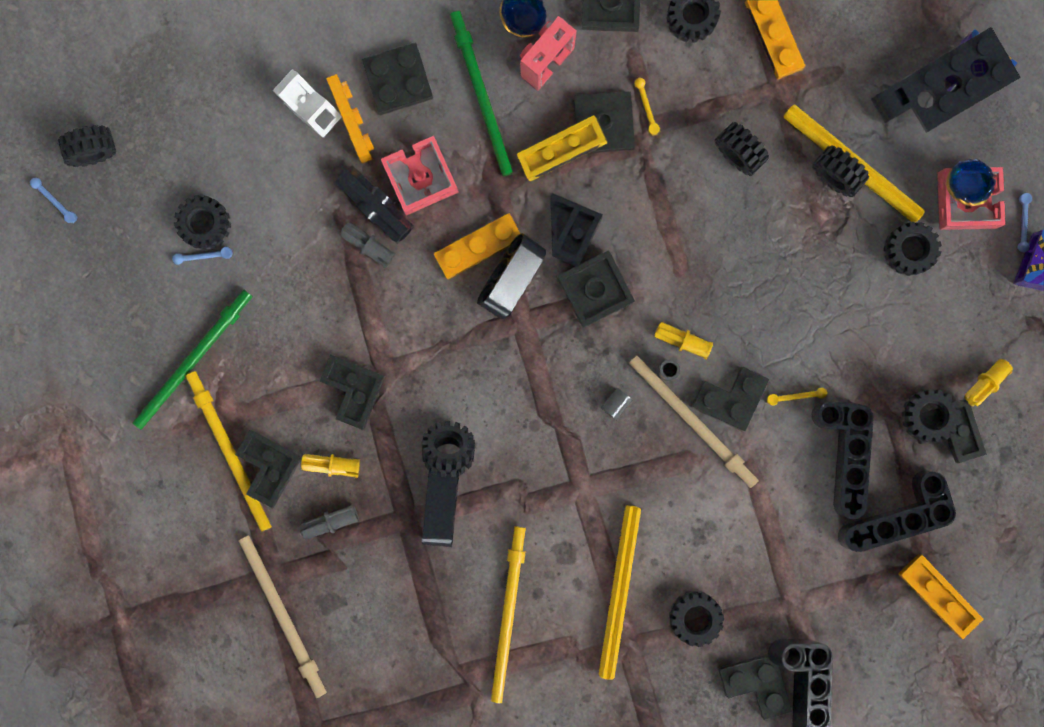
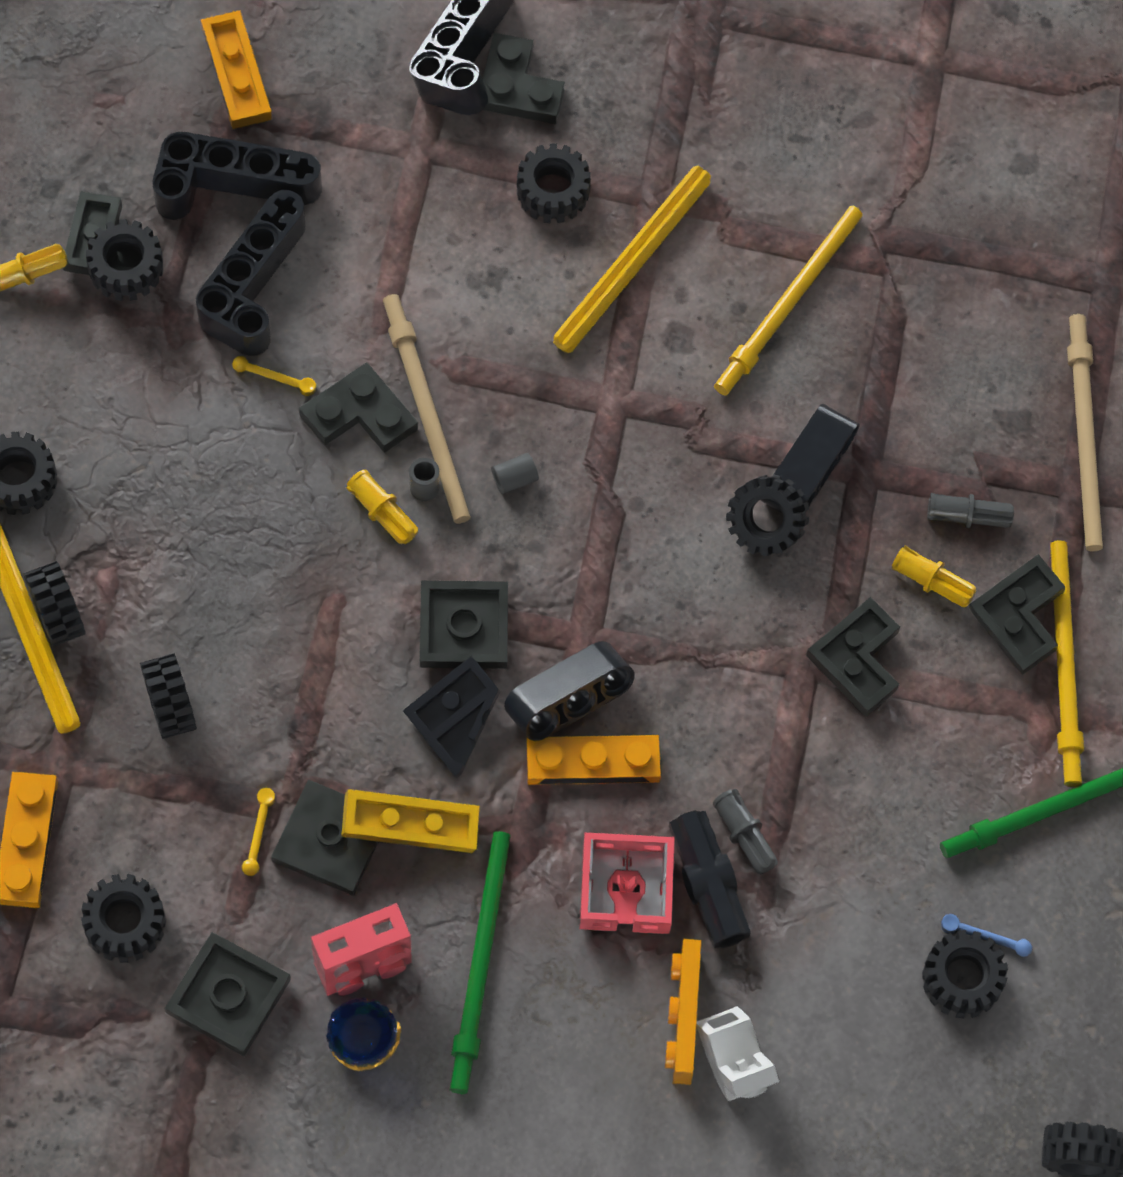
camera: 160 degrees left, 20 degrees down
(397, 78) = (588, 1041): pearl dark grey plate -> none

